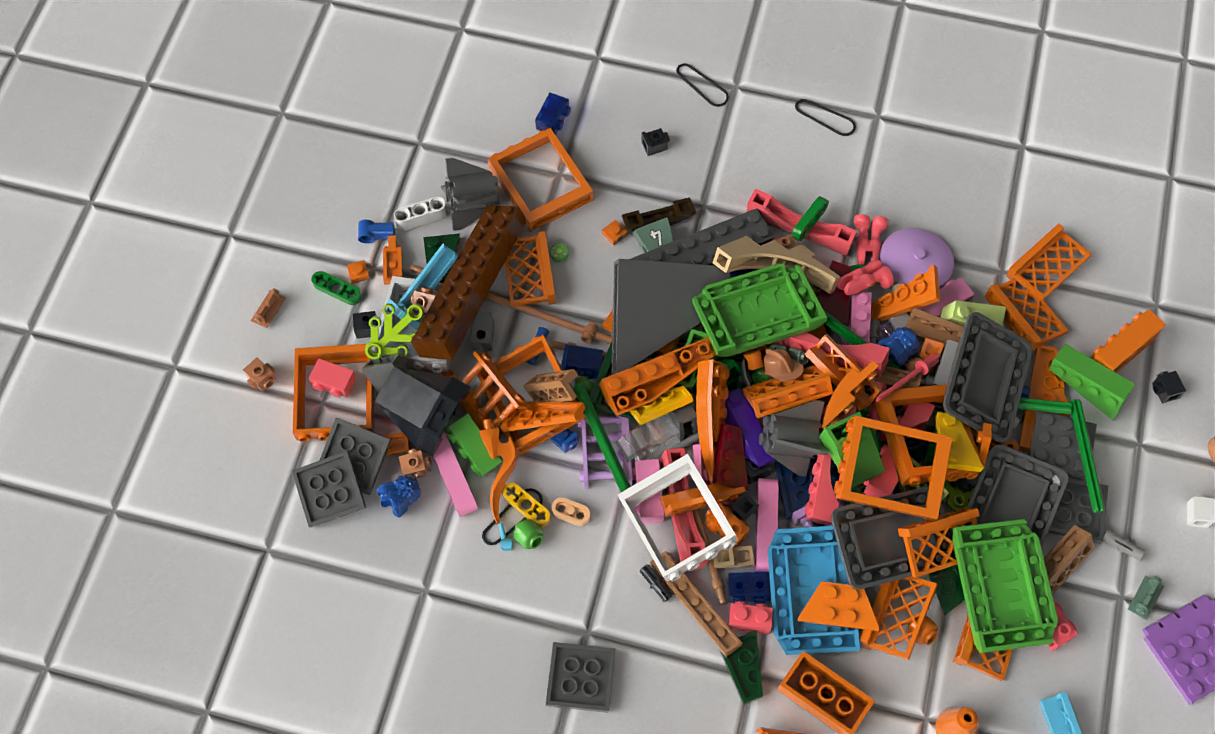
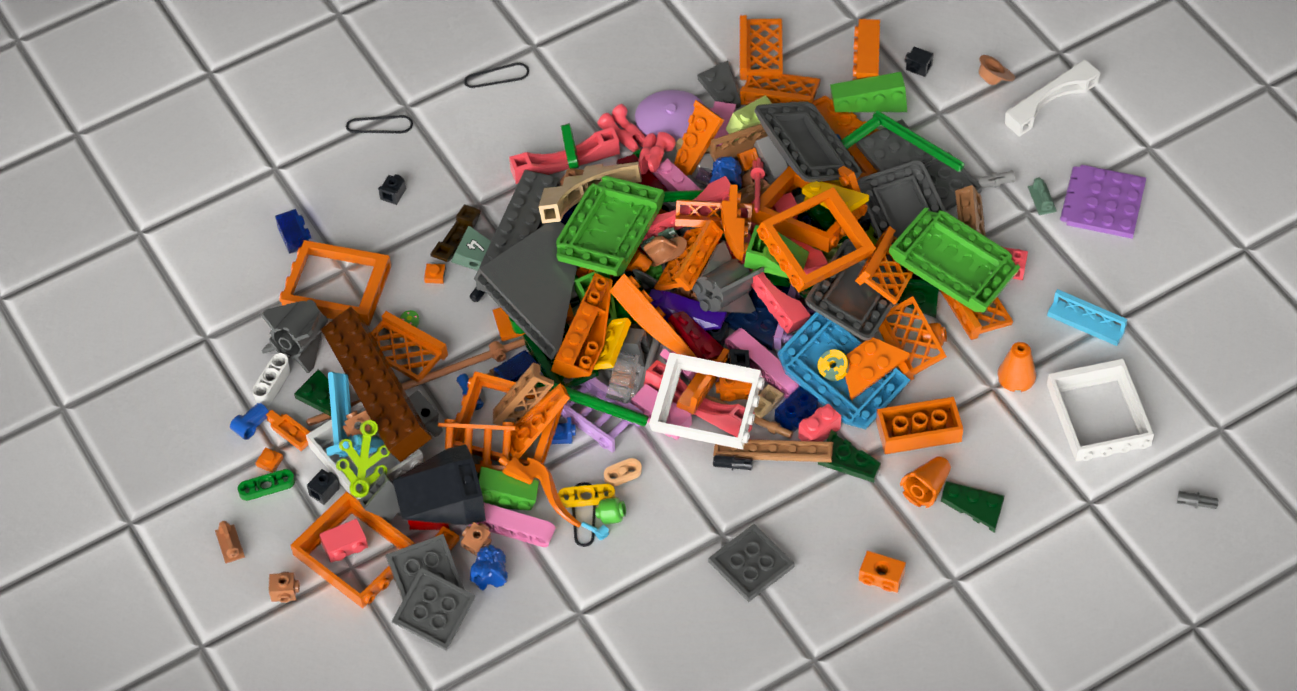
camera: 45 degrees left, 10 degrees down
(800, 579) = (830, 357): none -> yellow piece
(984, 268) = (720, 84): none -> dark grey wing

